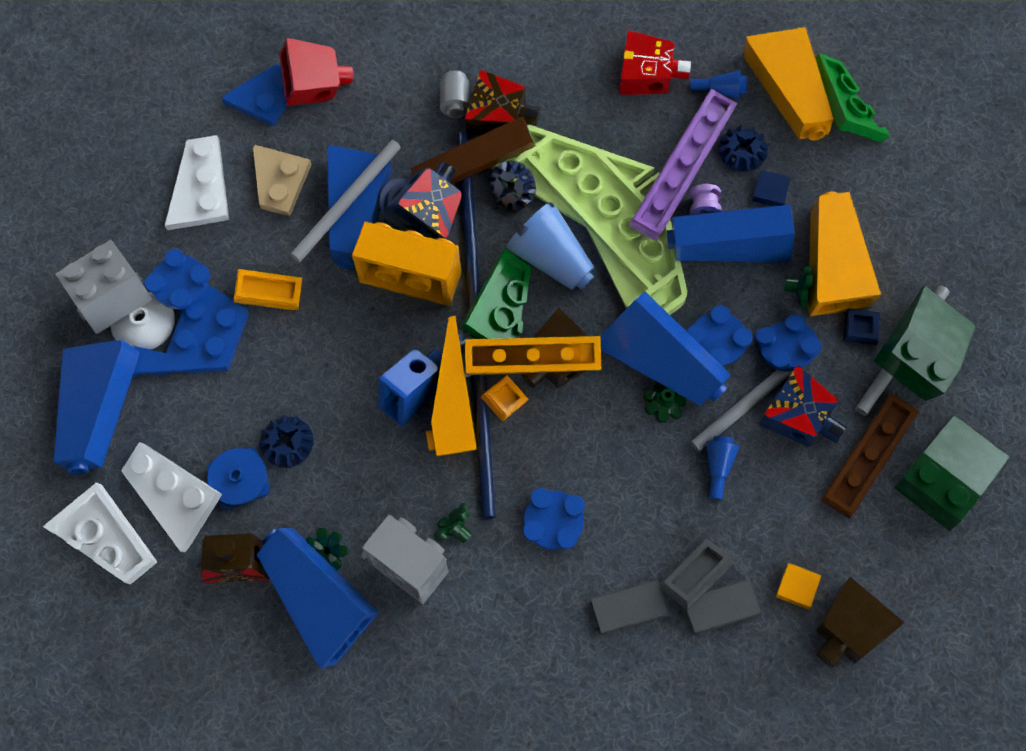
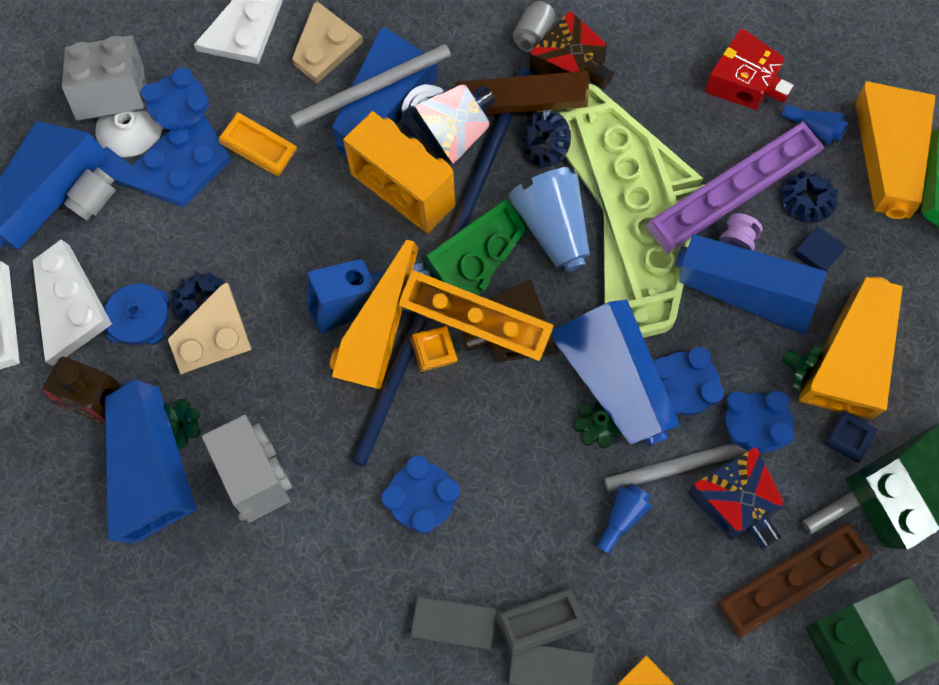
camera: 25 degrees right, 0 degrees up
(142, 391) = (90, 193): none -> light grey brick
(312, 465) = (210, 333): none -> tan wing
(454, 525) = (318, 456): dark green plant -> none

